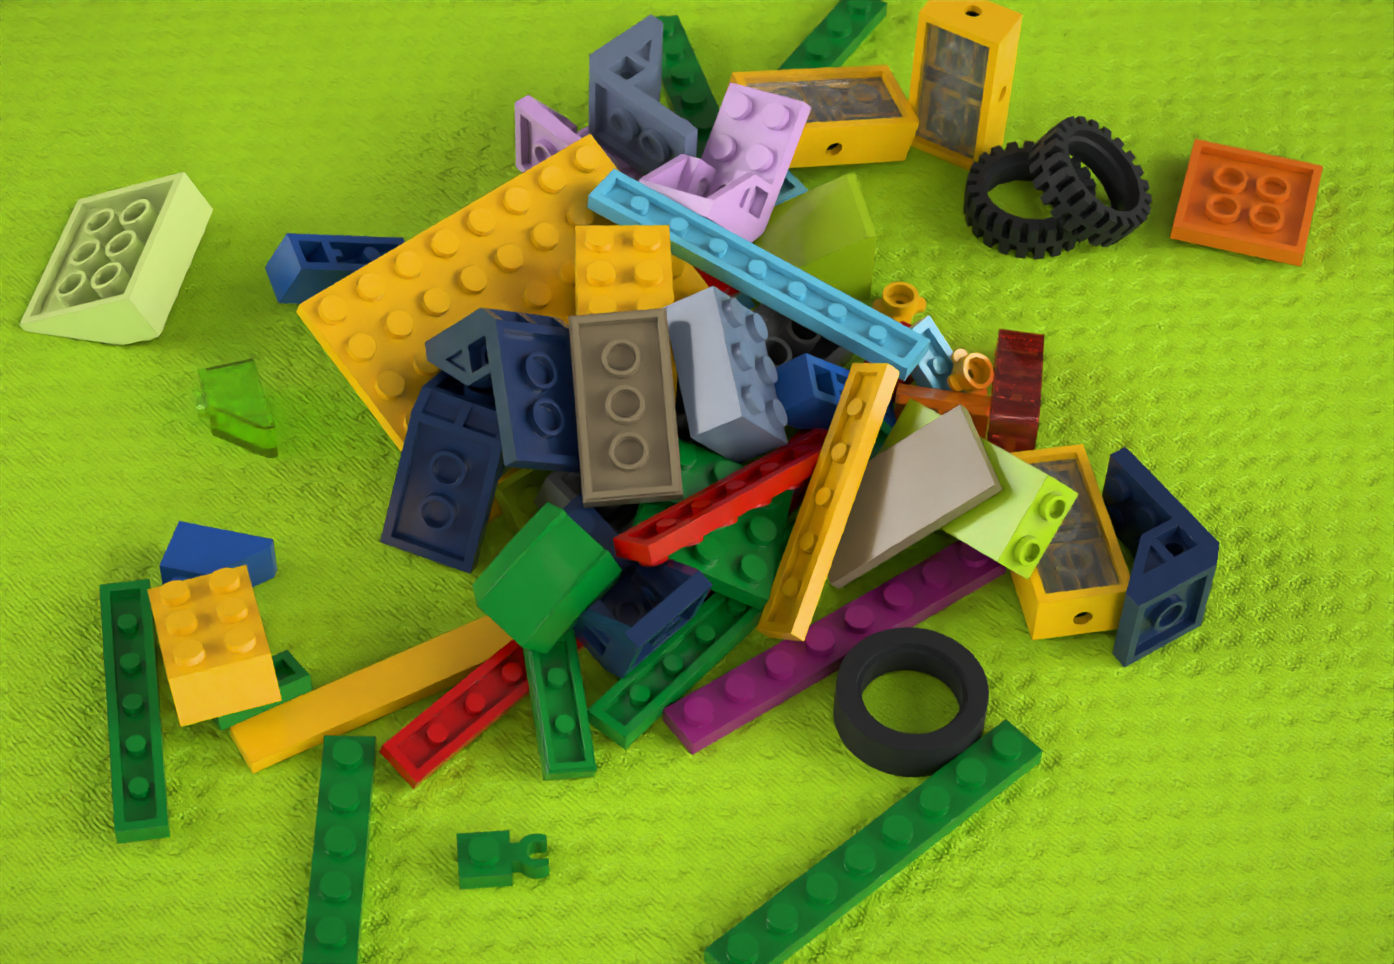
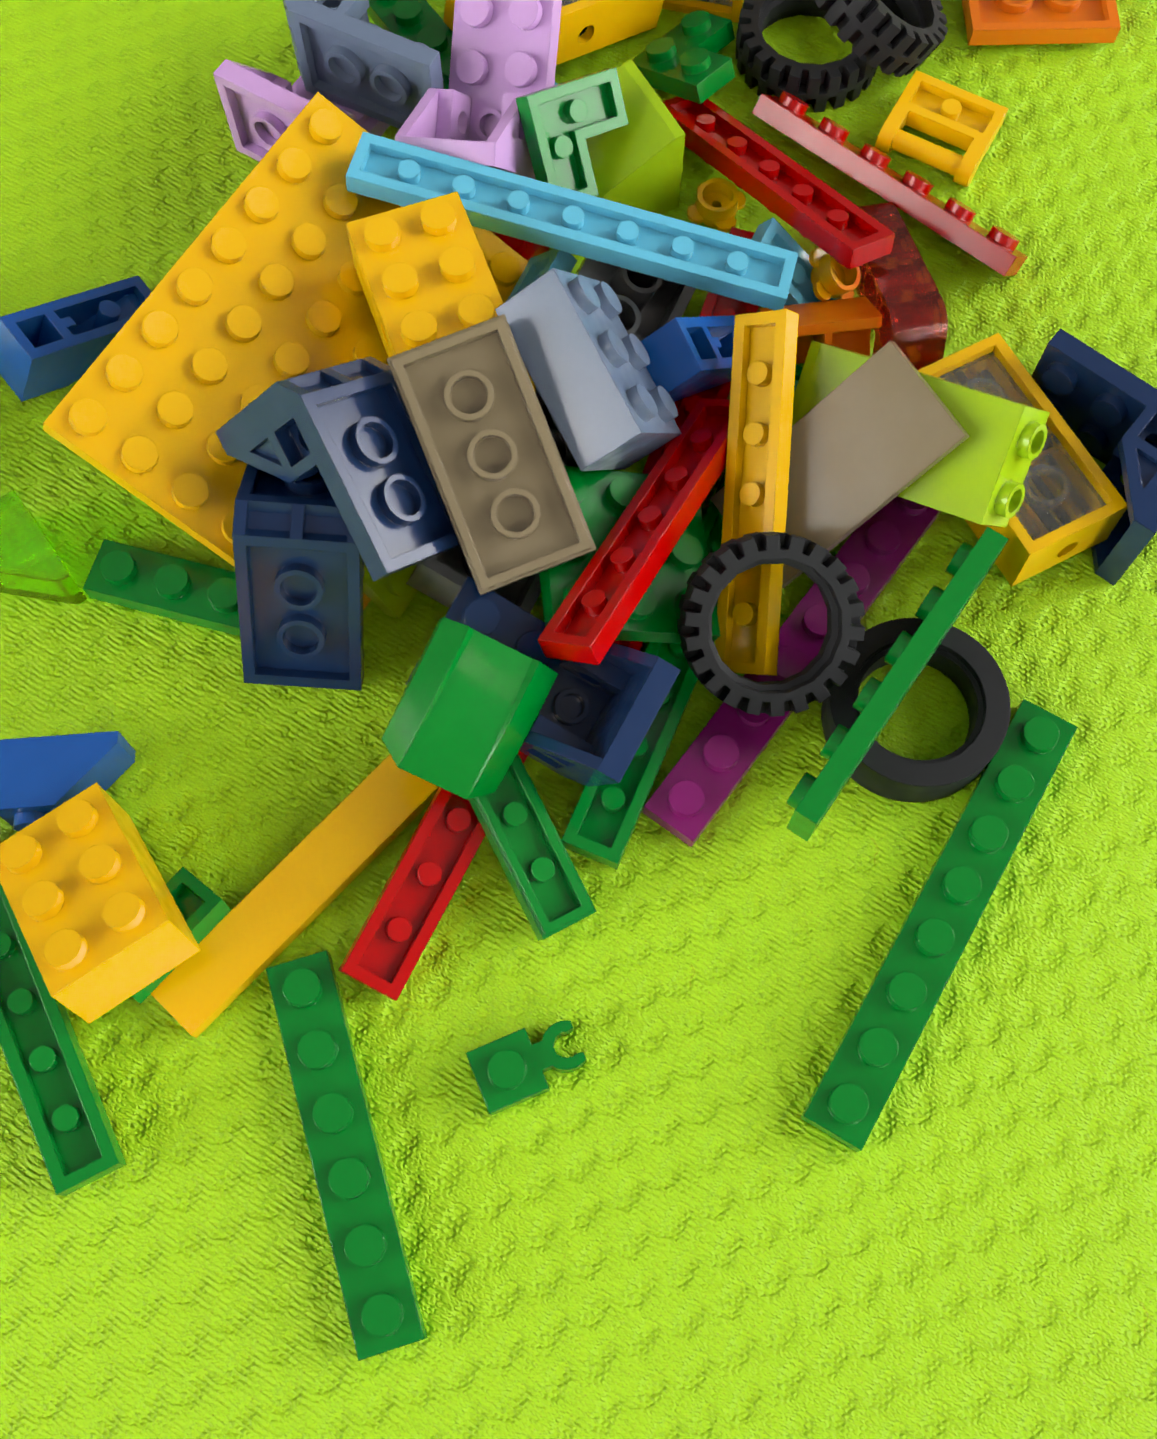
camera: 15 degrees left, 20 degrees up
(341, 461) = (165, 586): none -> green plate
(776, 199) = (561, 120): none -> plate
(796, 530) = (836, 650): none -> black tyre
(891, 663) = (881, 699): none -> green plate
(919, 189) = (687, 57): none -> green plate
(945, 291) = (781, 184): none -> red plate
(1061, 331) = (907, 192): none -> plate
(1124, 284) = (946, 115): none -> yellow plate

